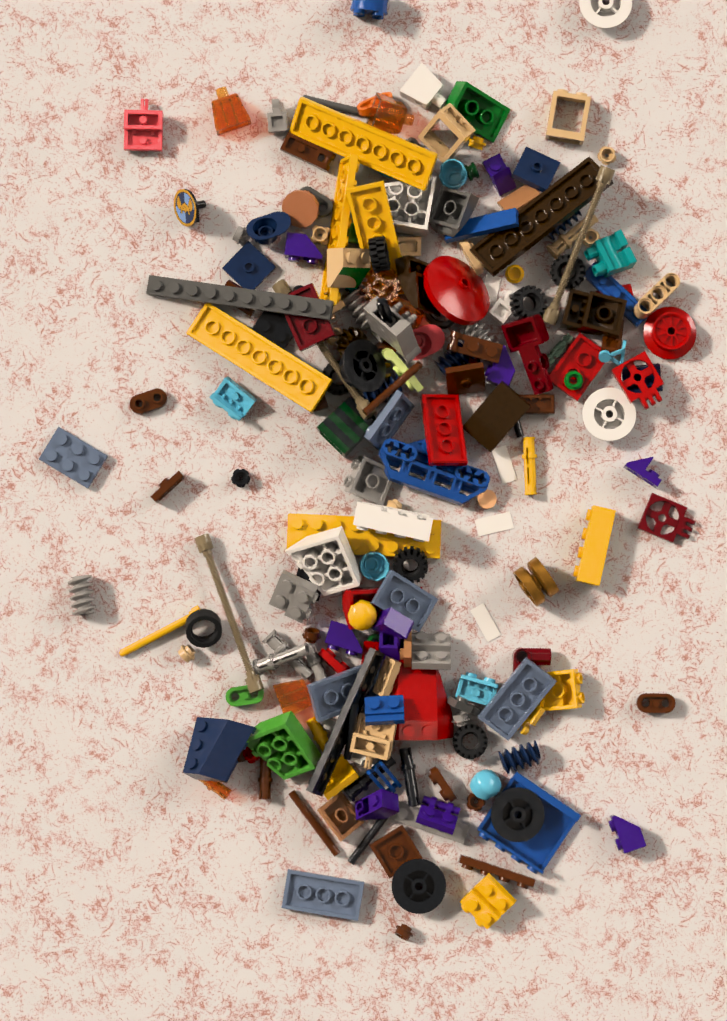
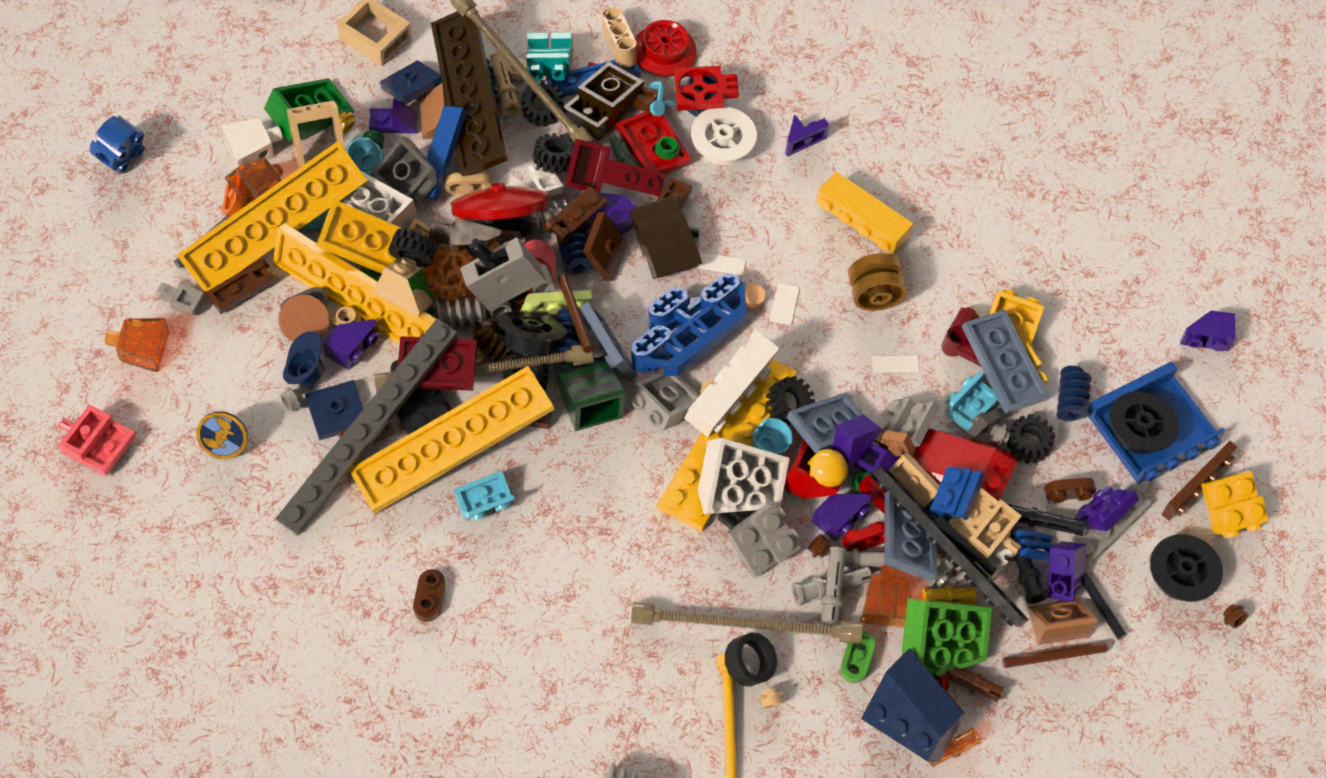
camera: 70 degrees left, 25 degrees down
(73, 457) = (447, 717): sand blue plate -> none
(166, 486) = (548, 621): reddish brown plate -> none
(235, 478) = (584, 529): black plate -> none
(323, 894) = (1151, 685): sand blue plate -> none
(341, 777) = (1016, 588): yellow bracket -> none
(394, 850) = (1129, 578): reddish brown plate -> none
(443, 430) = (651, 291): red tile -> none
(476, 806) = (1108, 461): reddish brown plate -> none
(485, 784) = (1090, 444): medium azure hair -> none
(514, 274) = (515, 155): yellow plate -> none
(529, 465) = (713, 226): yellow pin -> none
(606, 160) = (436, 13): tan plate -> none
(655, 703) = (1070, 241): reddish brown plate -> none
(679, 525) = (879, 133): dark red piece -> none

